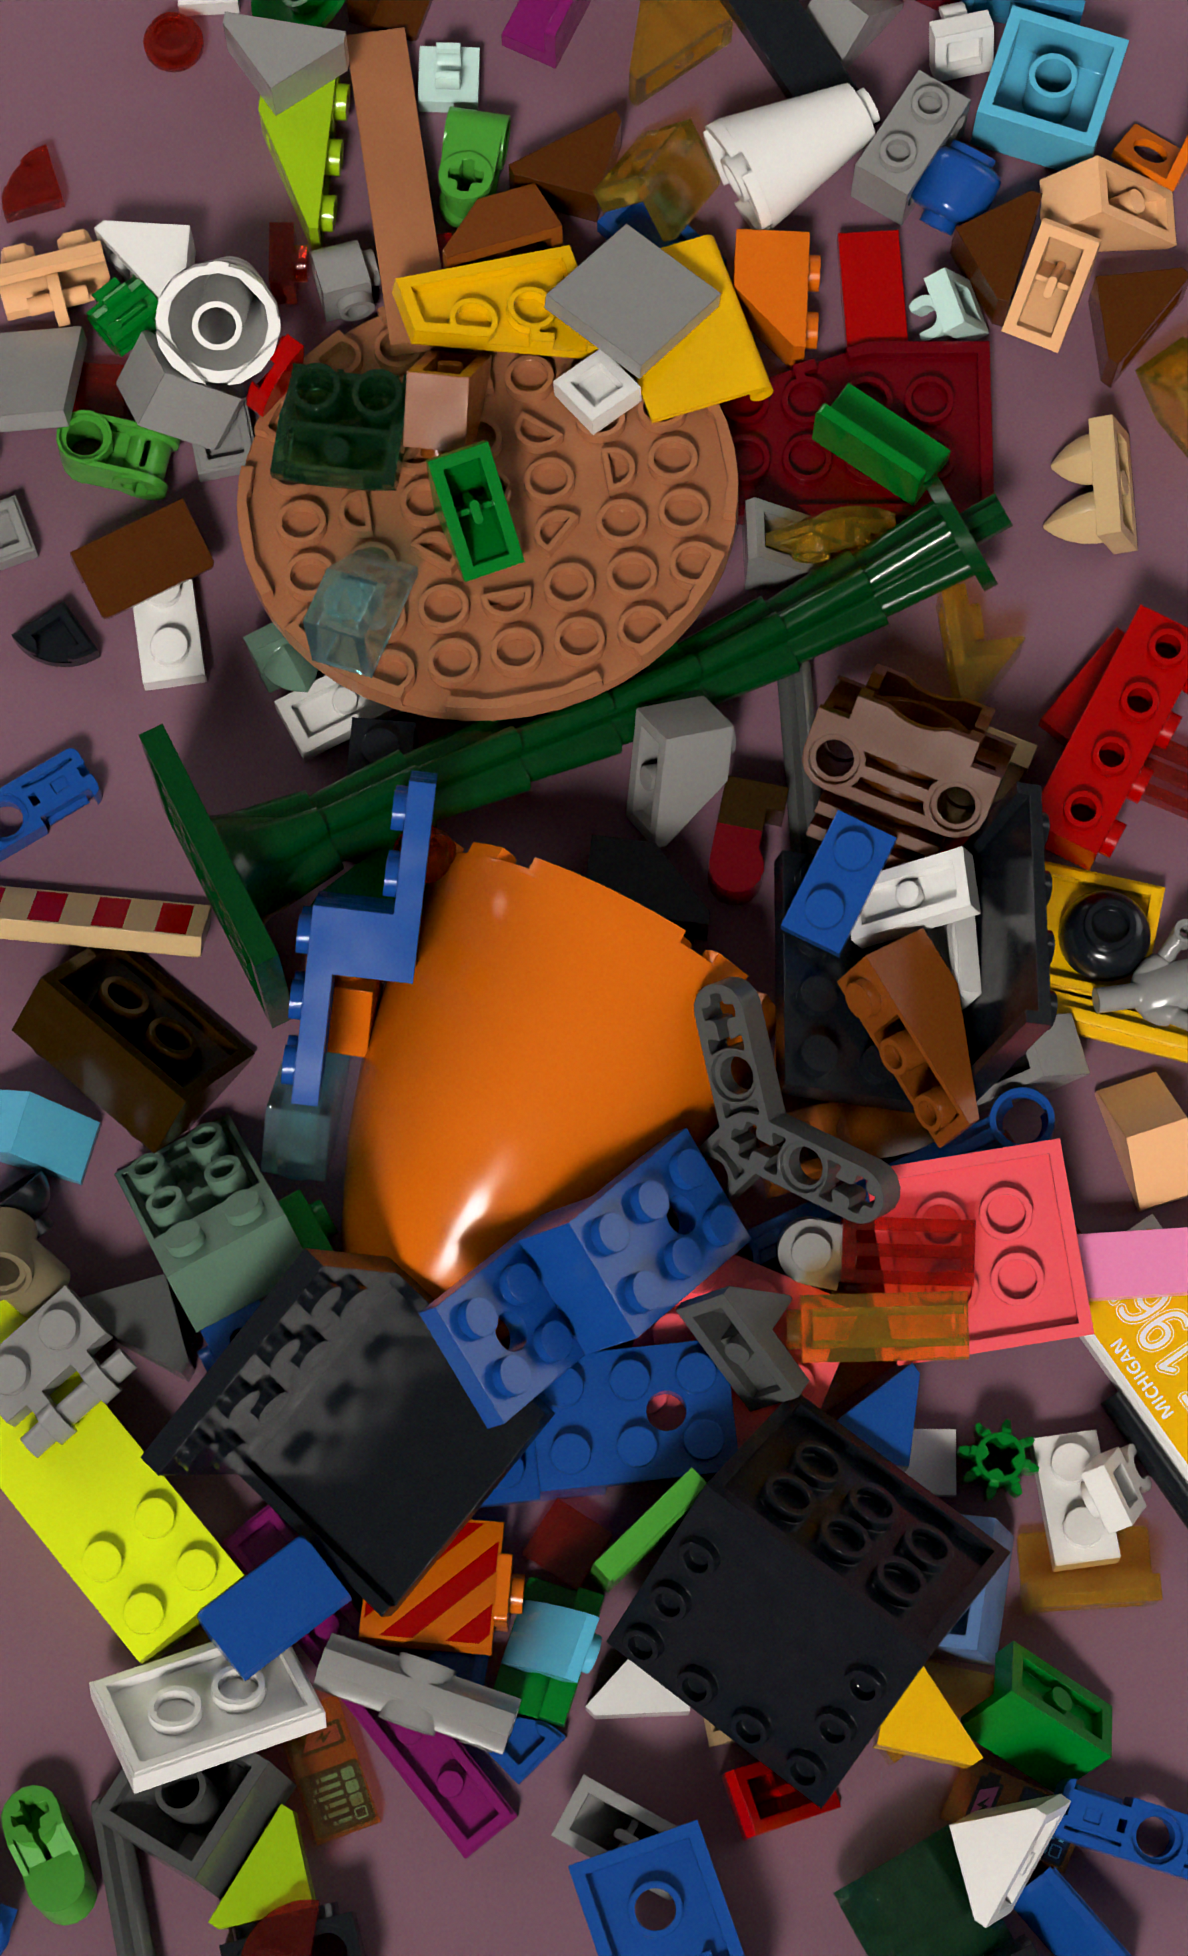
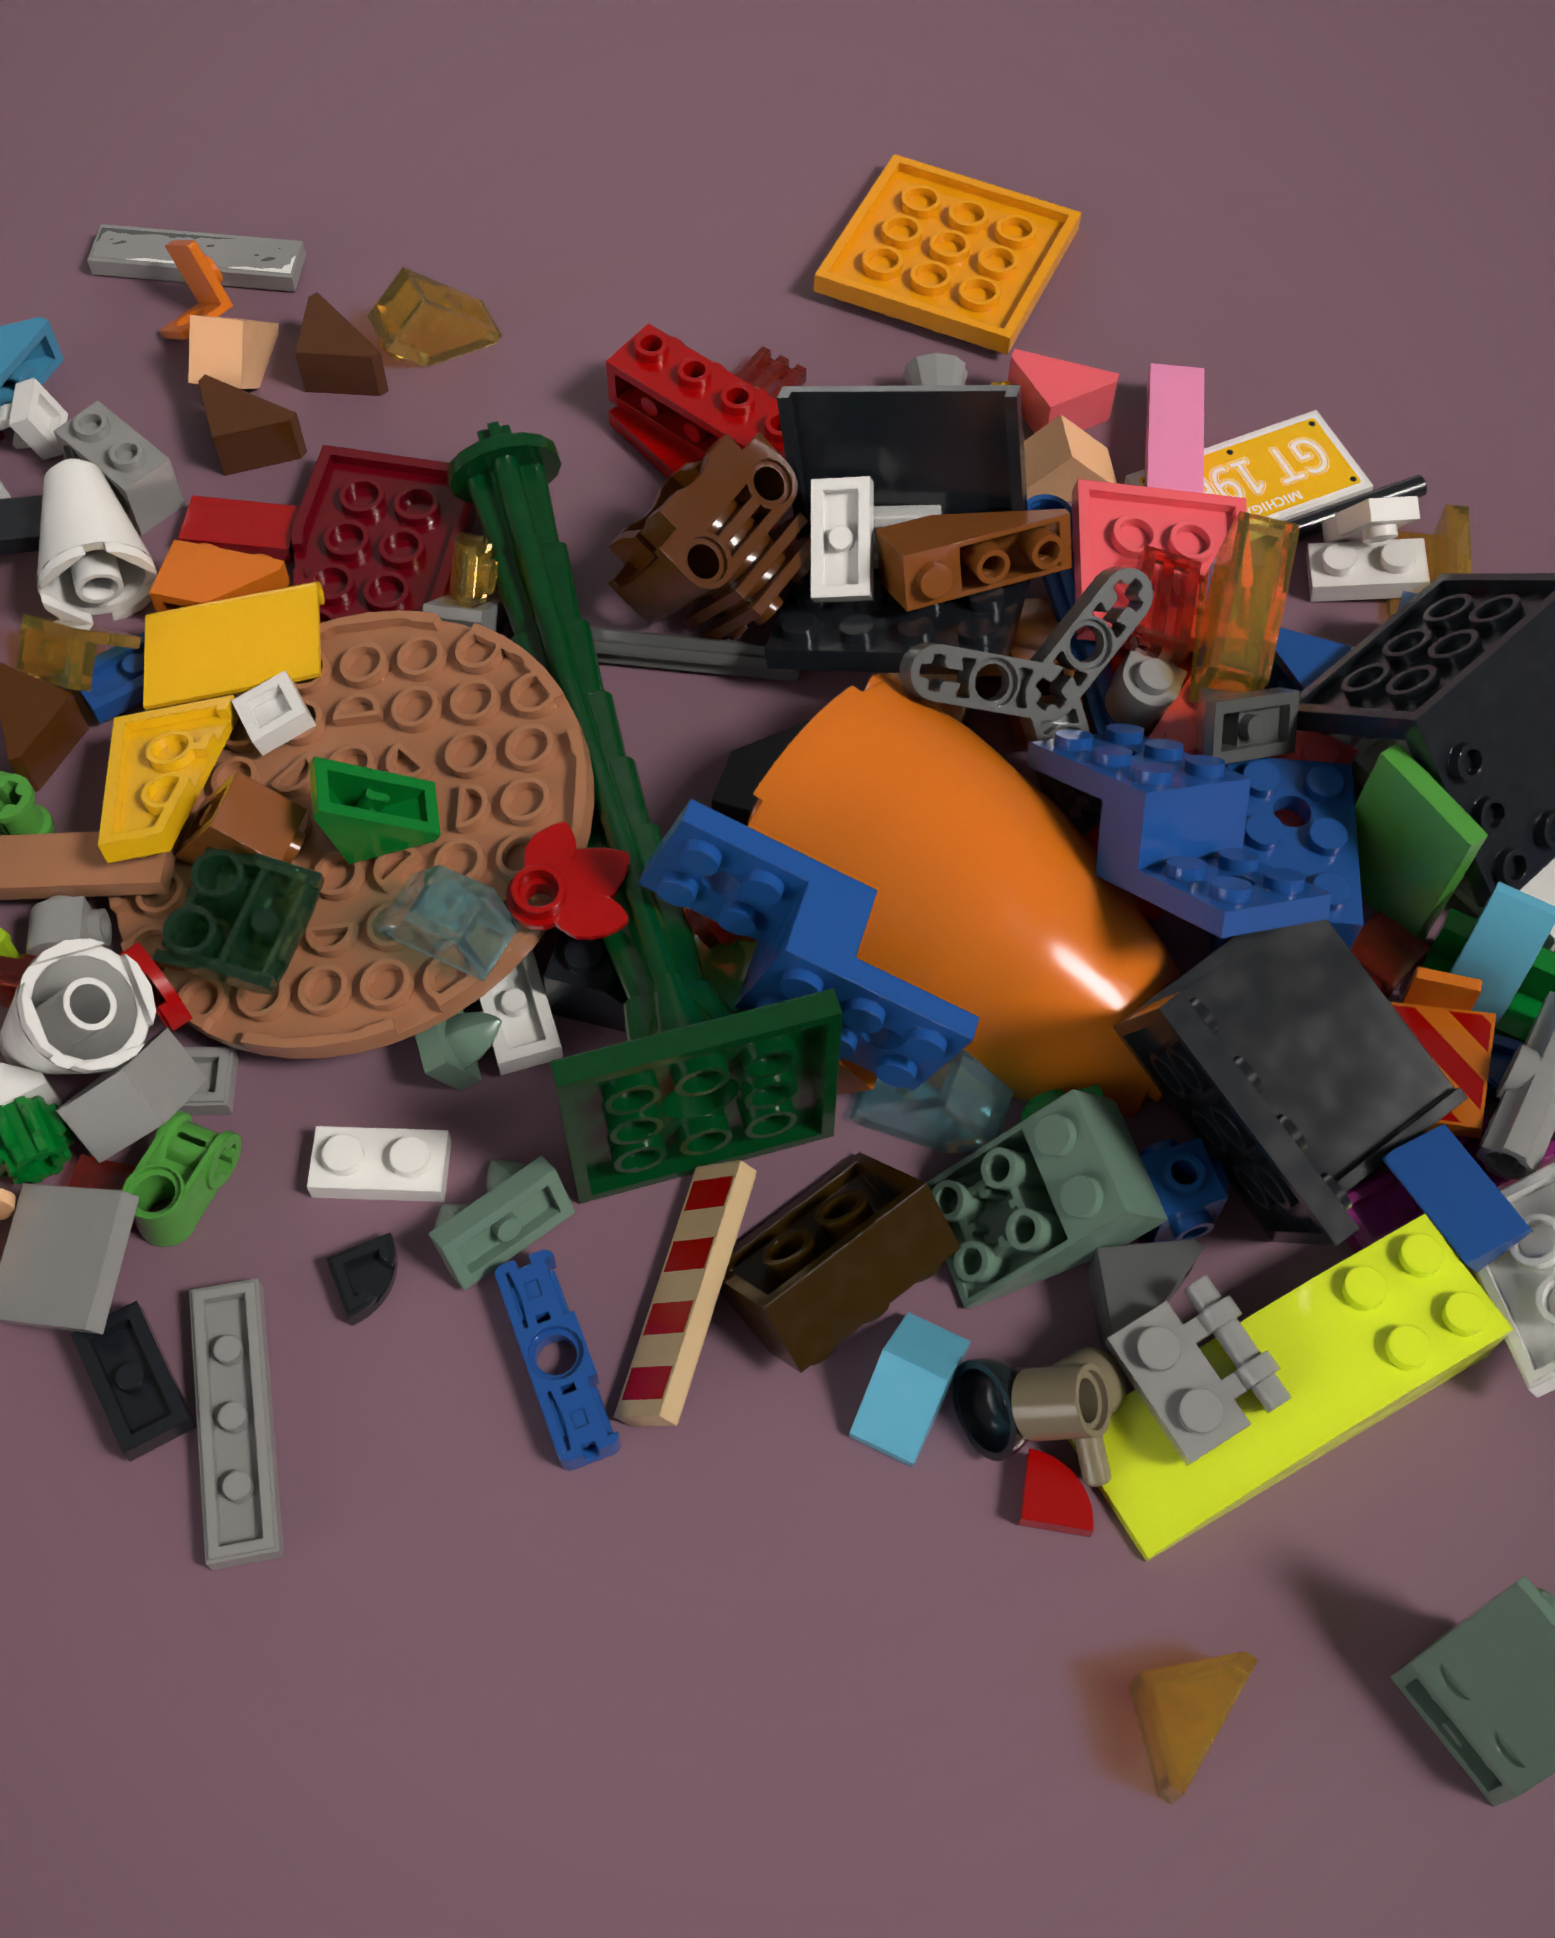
camera: 80 degrees left, 15 degrees down
(106, 730) = (516, 1211): none -> sand green tile
(142, 559) = (306, 1164): reddish brown panel -> none
(416, 719) = (577, 882): none -> red plate
(504, 227) = (73, 770): dark orange slope -> none
(632, 300) = (195, 665): light grey tile -> none
(676, 764) = (661, 725): light grey slope -> none
(735, 856) = (732, 701): leg -> none
(838, 883) = (818, 587): blue plate -> none
(879, 443) = (397, 526): green panel -> none
(955, 308) = (281, 465): light aqua tile -> none
(956, 187) = (178, 437): blue head -> none
(972, 666) = (600, 512): clear yellow slope -> none
(995, 1478) = (1333, 608): green gear -> none
(1048, 90) = (110, 354): medium azure brick -> none
(1051, 285) = (278, 376): light nougat slope -> none
(1108, 512) = (458, 389): tan tile -> none

